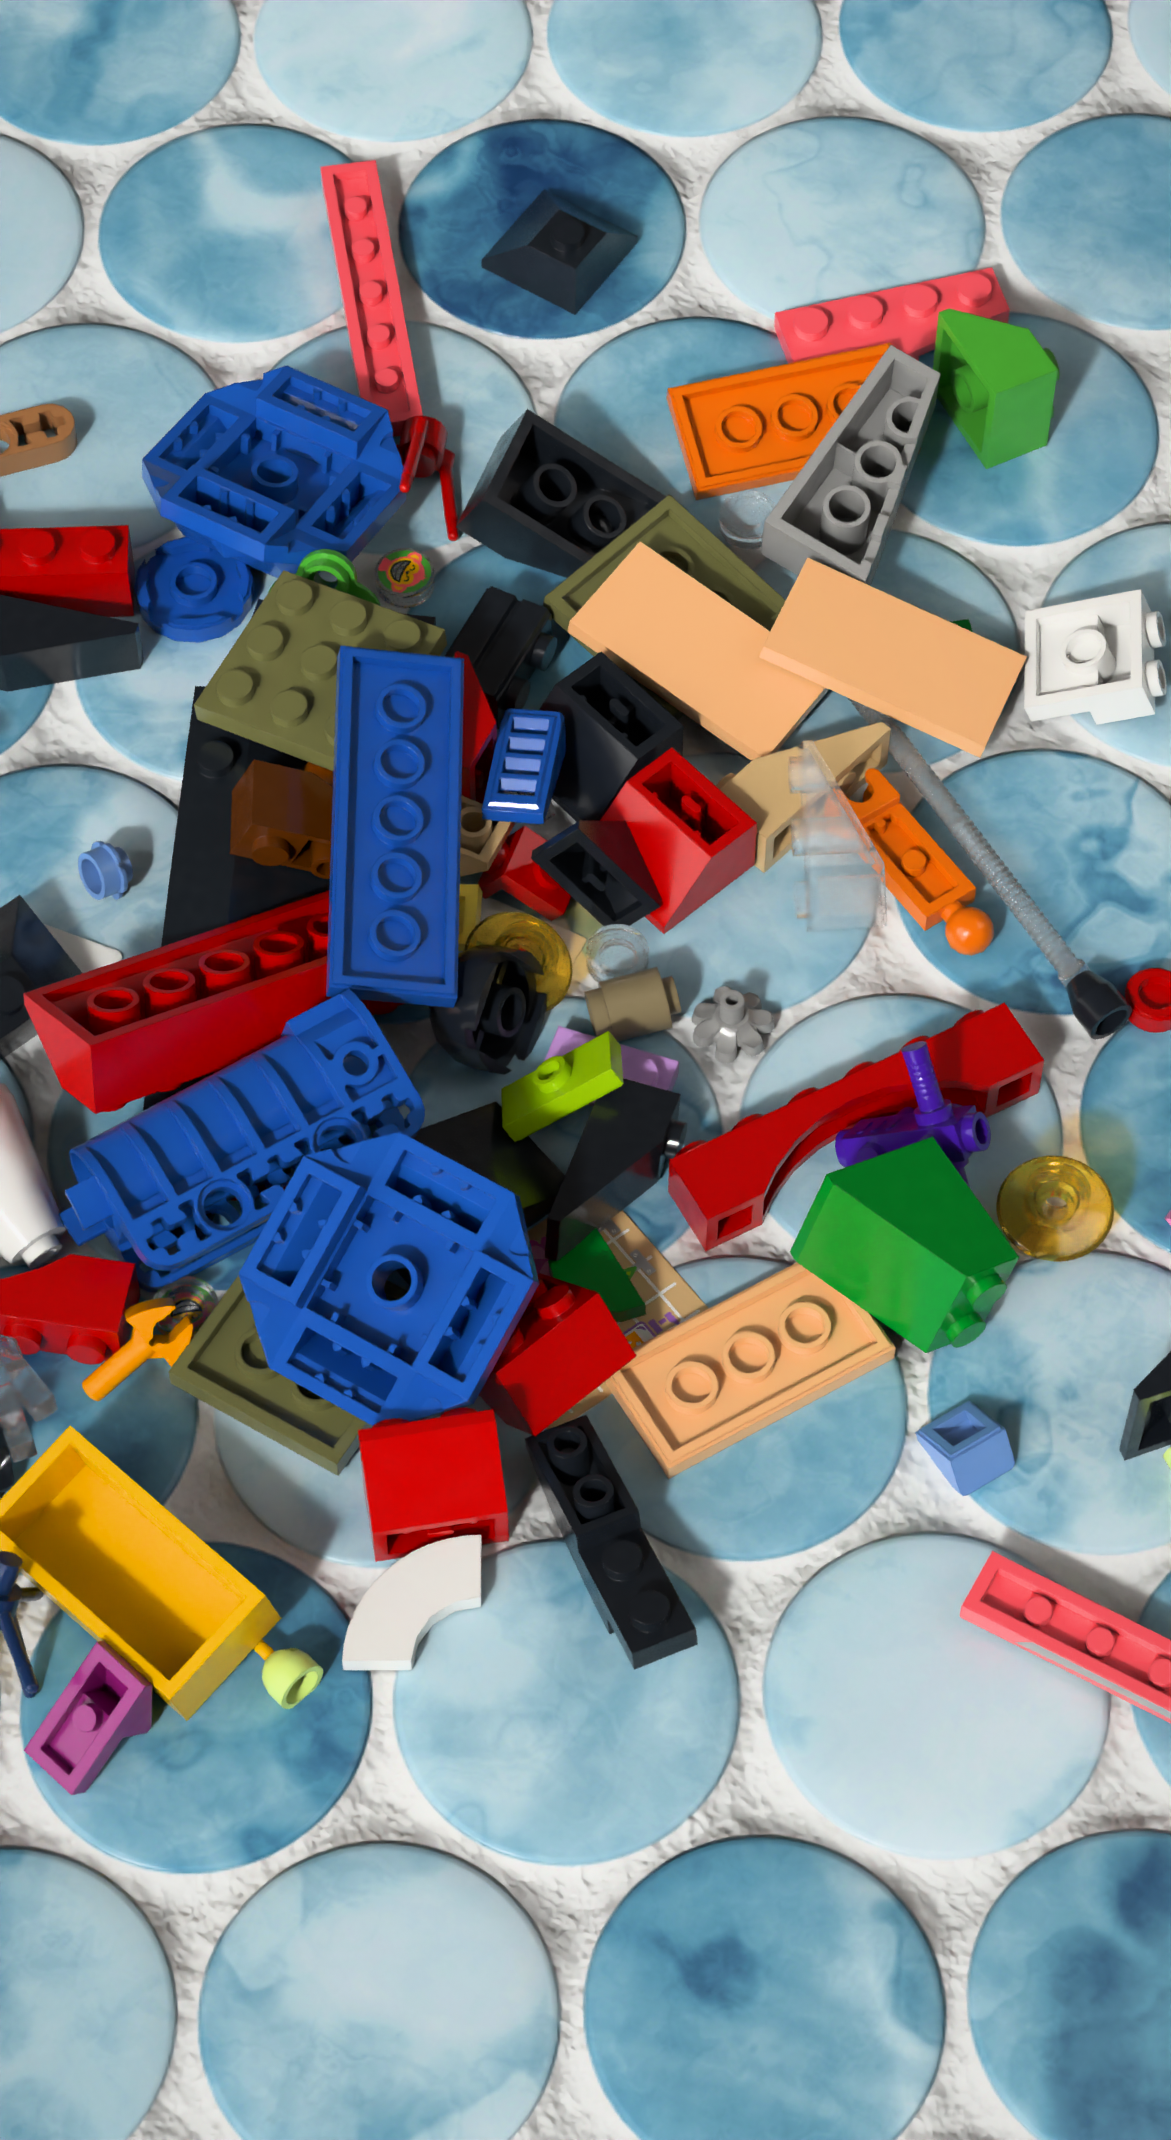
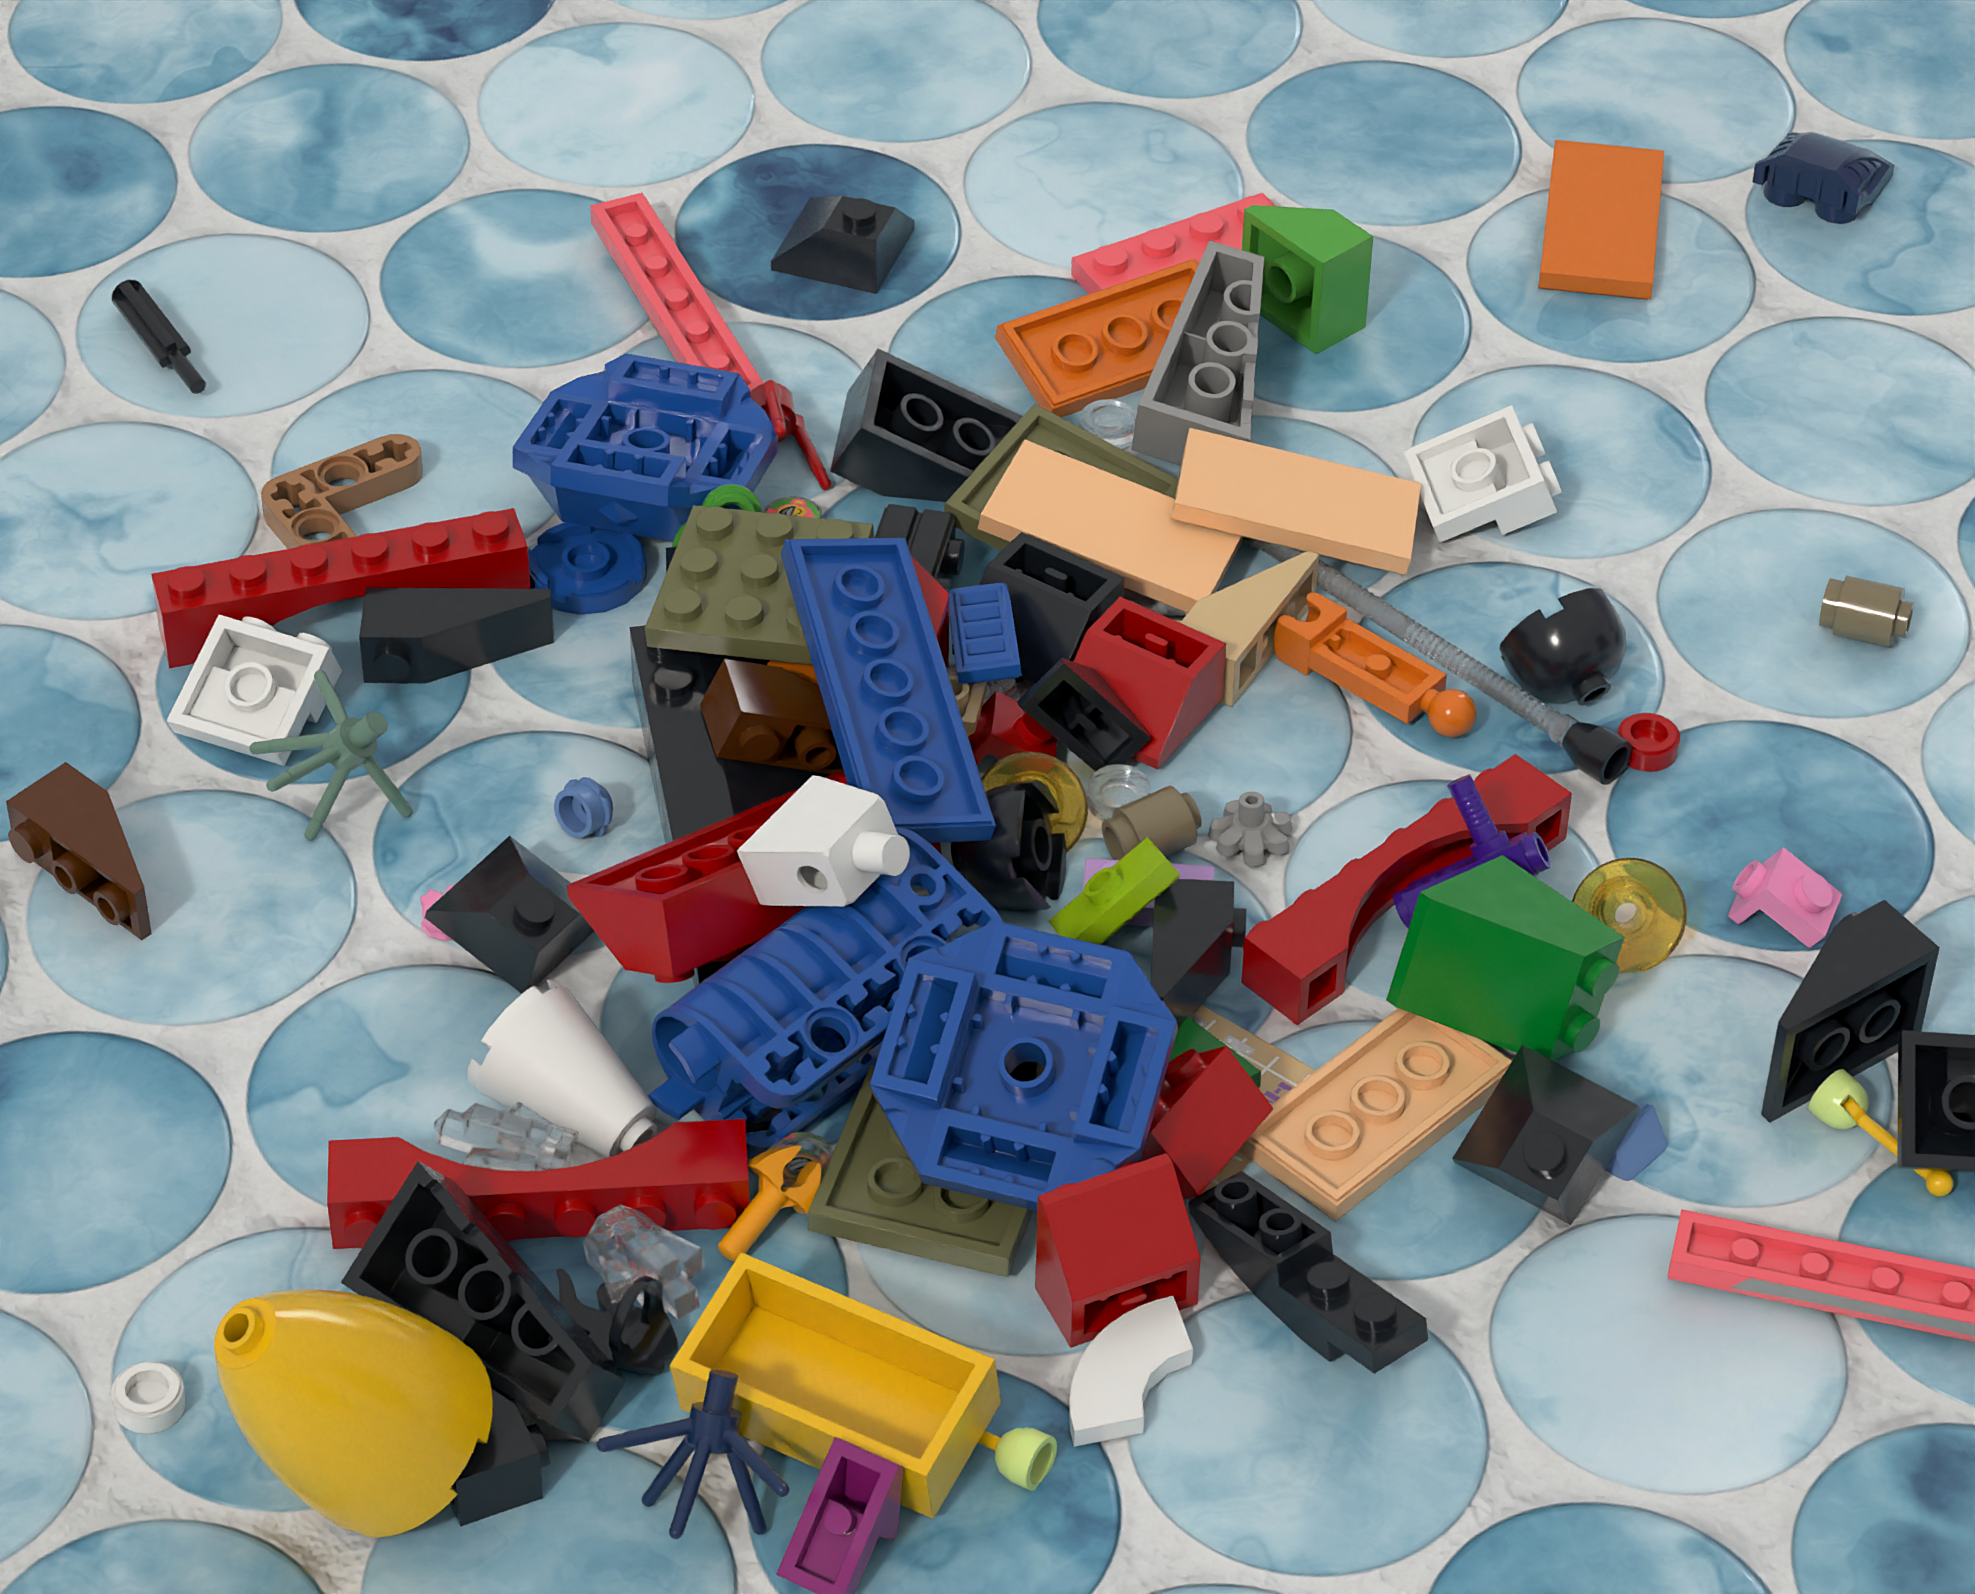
camera: 15 degrees left, 15 degrees down
(267, 1008) = (823, 847): none -> white torso
(841, 865) = (1312, 665): clear slope -> none
(890, 1440) = (1546, 1134): none -> black slope
(1103, 888) = (1568, 652): none -> black cylinder

